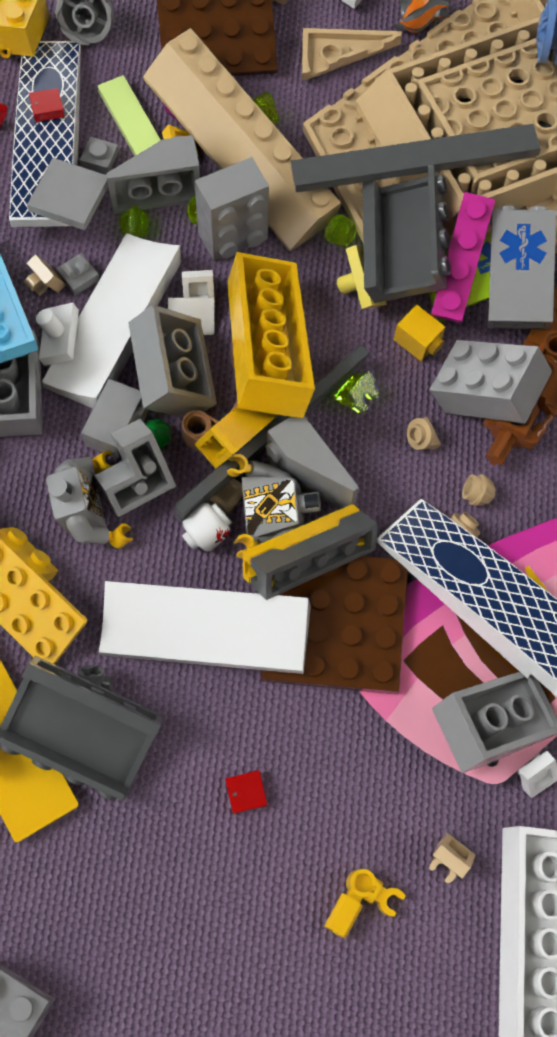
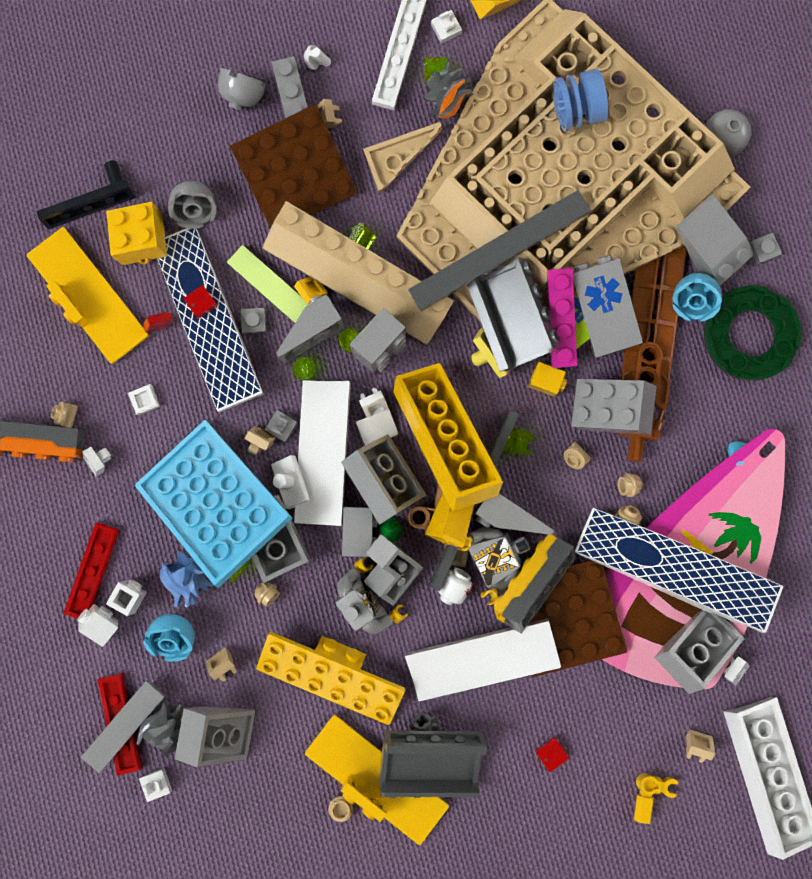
camera: 15 degrees left, 15 degrees up
(68, 193) = (252, 374): light grey tile -> none
(340, 230) = (458, 316): clear neon green tile -> none

